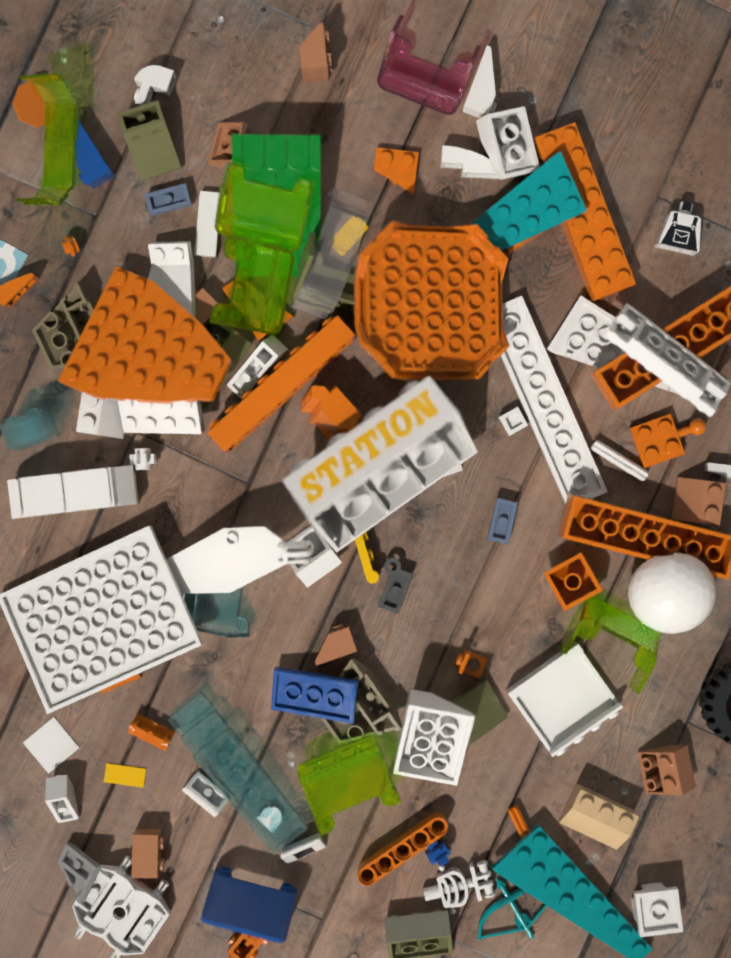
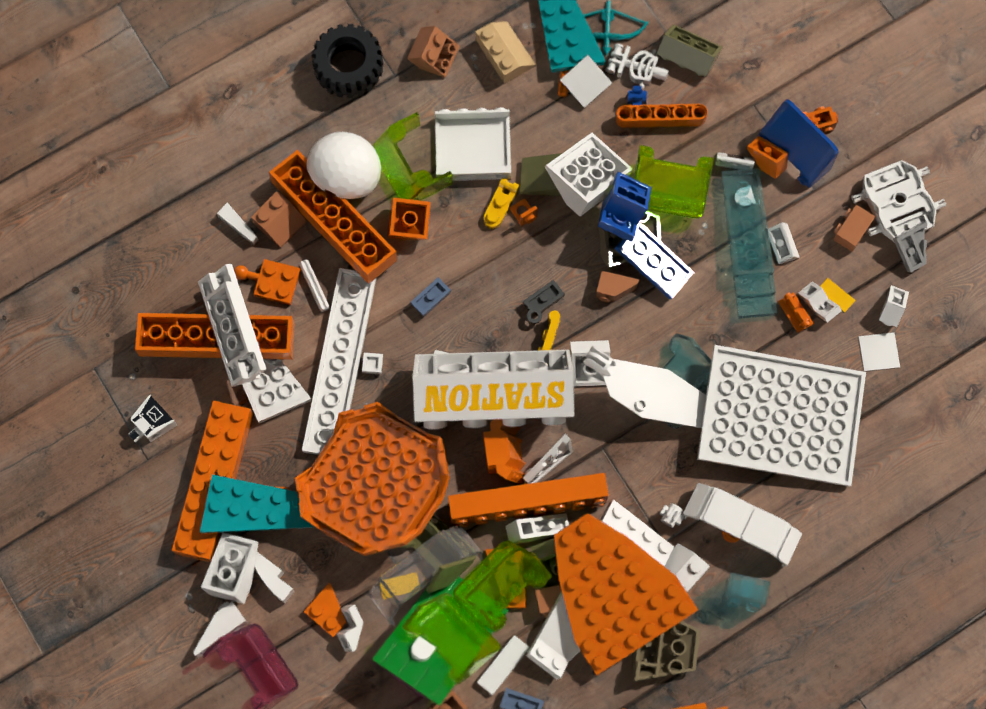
camera: 145 degrees left, 15 degrees down
(134, 756) = (818, 301): none -> white slope
(272, 873) = (768, 157): none -> orange slope
(282, 176) = (422, 650): none -> white tile
(288, 432) = (549, 461): none -> white wing
(362, 160) = (350, 636): none -> white slope
(373, 726) = (624, 206): none -> blue bracket
(498, 657) = (500, 204): none -> yellow plate
(498, 836) = (585, 81): none -> white tile

